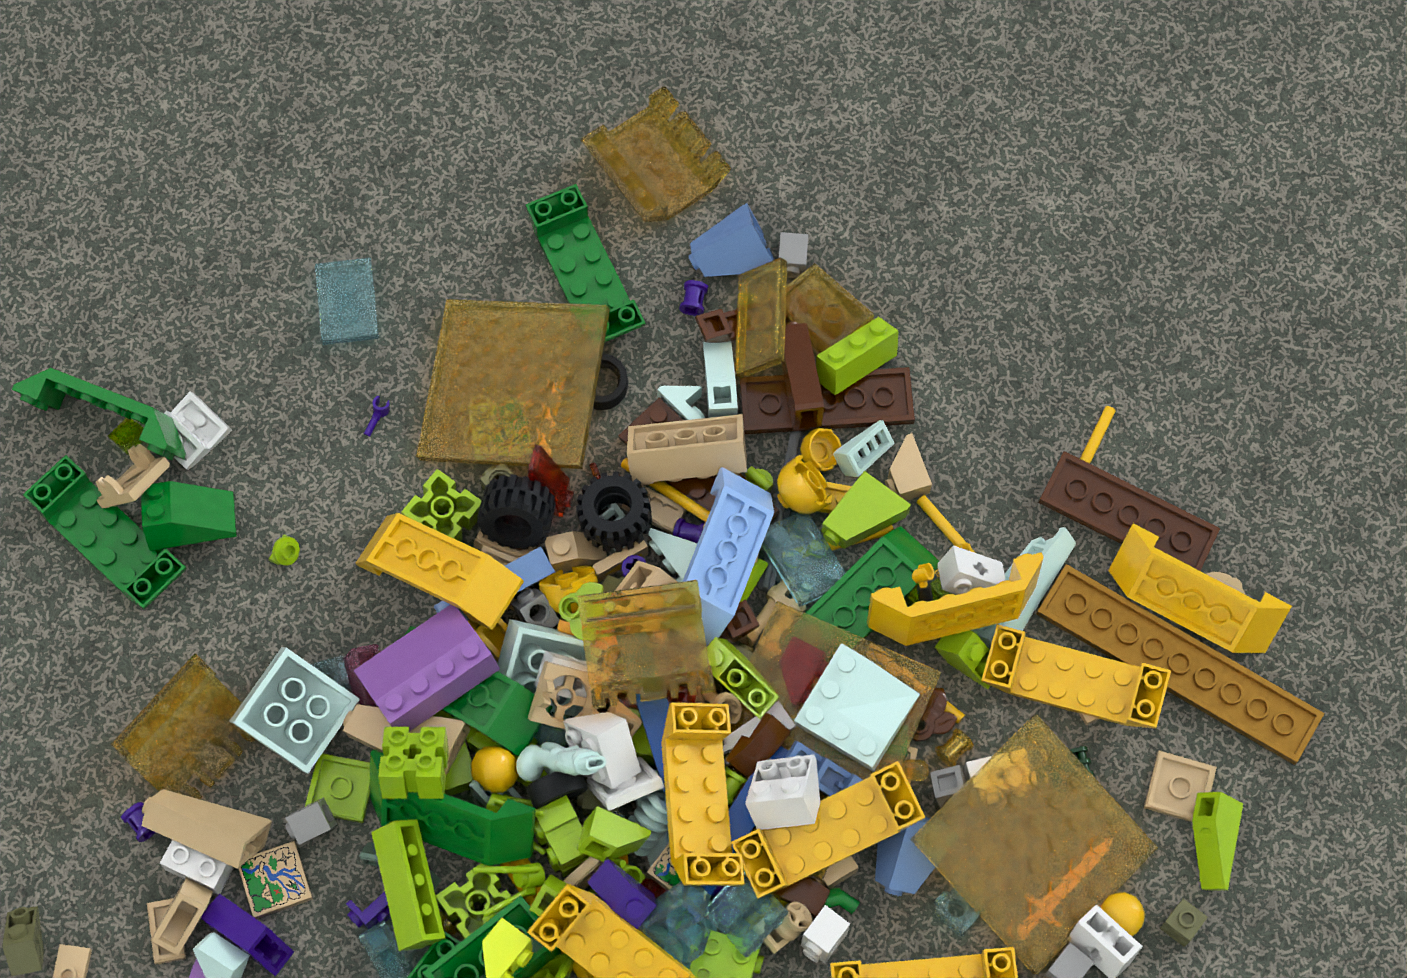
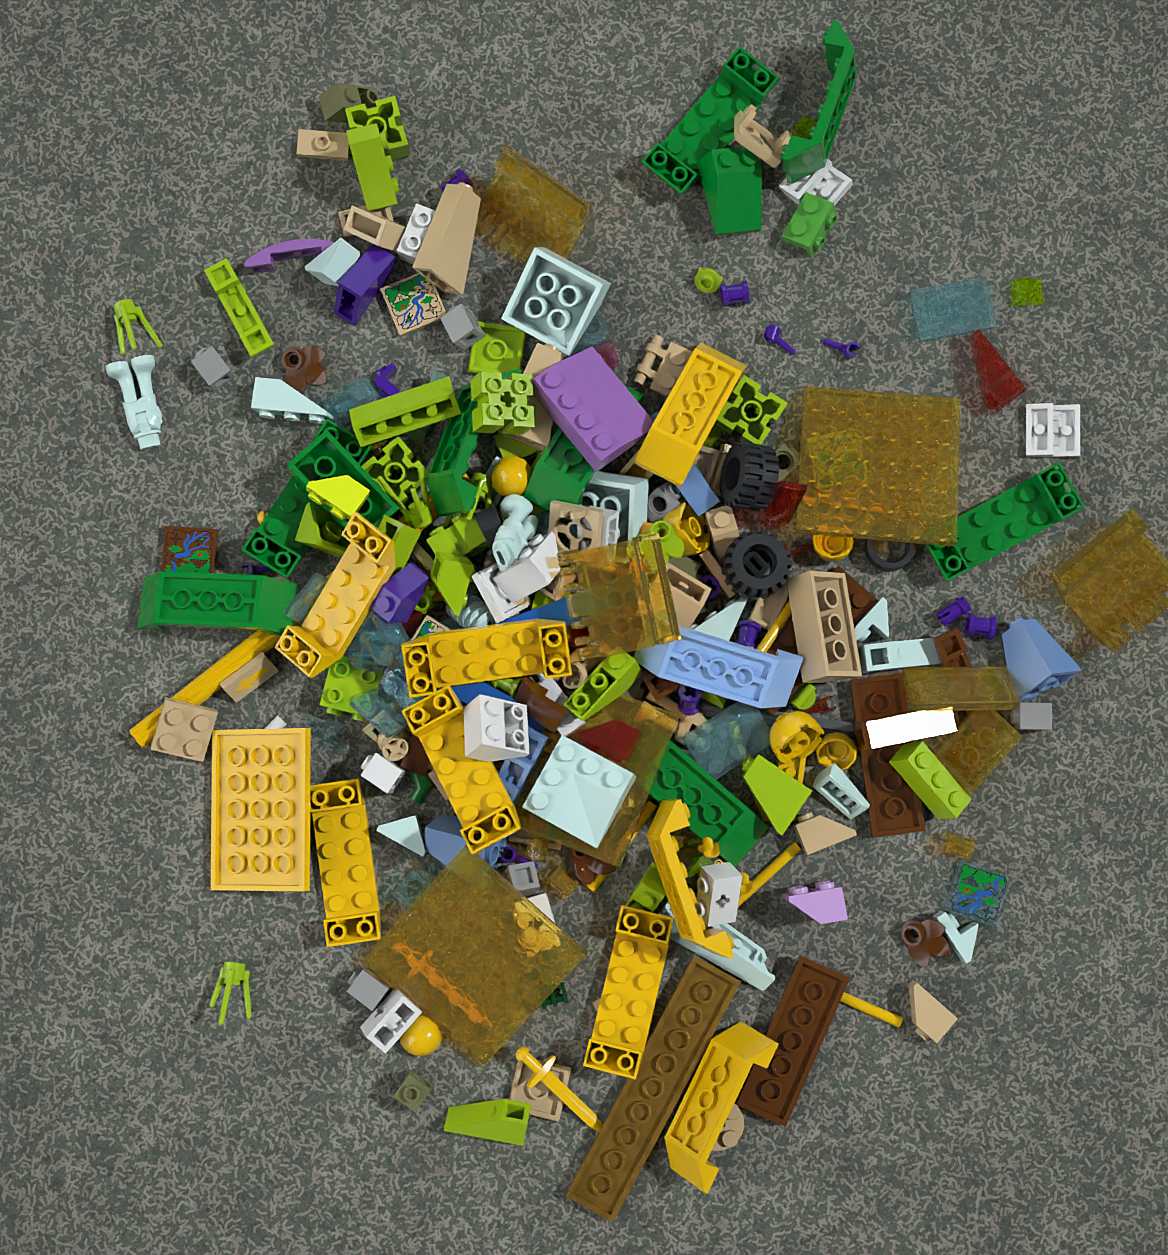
camera: 85 degrees right, 15 degrees up
(49, 897) = (388, 121): none -> lime brick
(110, 908) = (373, 166): none -> lime brick
(233, 437) = (811, 223): none -> bright green bracket
(304, 522) = (734, 293): none -> dark purple bush
(335, 227) = (1026, 292): none -> clear neon green slope
(355, 487) = (772, 335): none -> dark purple hand
(384, 597) = (670, 368): none -> tan plate
(424, 264) = (995, 377): none -> clear red slope
(488, 212) = (1053, 430): none -> white slope
(601, 437) = (836, 550): none -> yellow hair
(675, 322) = (953, 611): none -> dark purple pin
(761, 592) = (689, 700): none -> dark purple bush
(771, 463) = (821, 706): none -> clear red hand
(892, 916) = (405, 832): none -> light aqua slope
(926, 336) = (958, 845): none -> clear yellow bush
(926, 795) = (516, 857): none -> dark purple hand
(976, 323) = (977, 893): none -> tile
(984, 473) = (822, 903): none -> lavender slope
(1025, 341) = (962, 940): none -> light aqua slope
(1027, 372) = (928, 941): none -> reddish brown plate
(1101, 378) = (929, 1014): none -> tan slope
(1165, 778) = (543, 1073): none -> yellow sword

